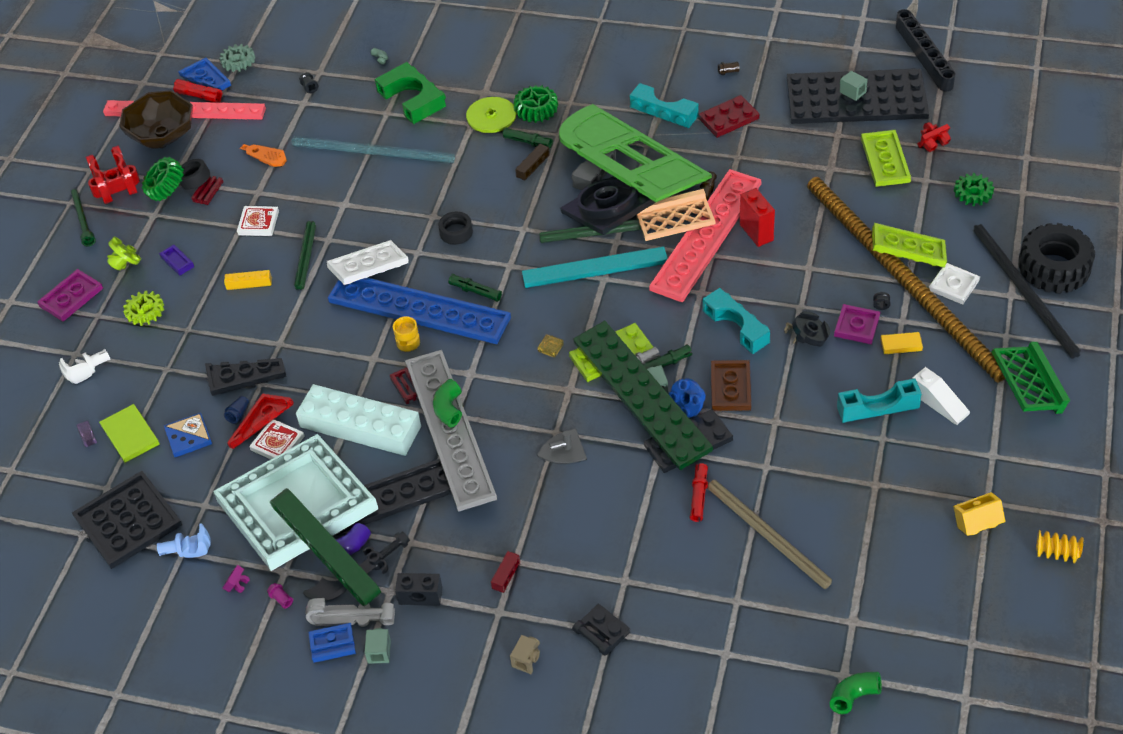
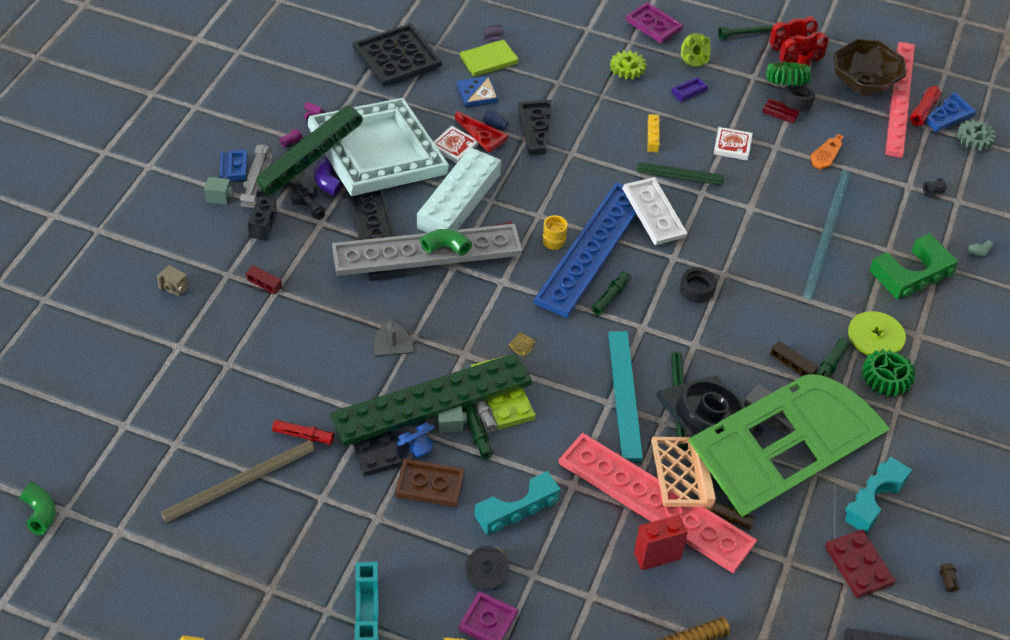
camera: 90 degrees right, 0 degrees up
(83, 368) = (564, 28): white piece -> none
(189, 546) = (357, 85): light blue piece -> none
(606, 625) = (182, 343): black plate -> none

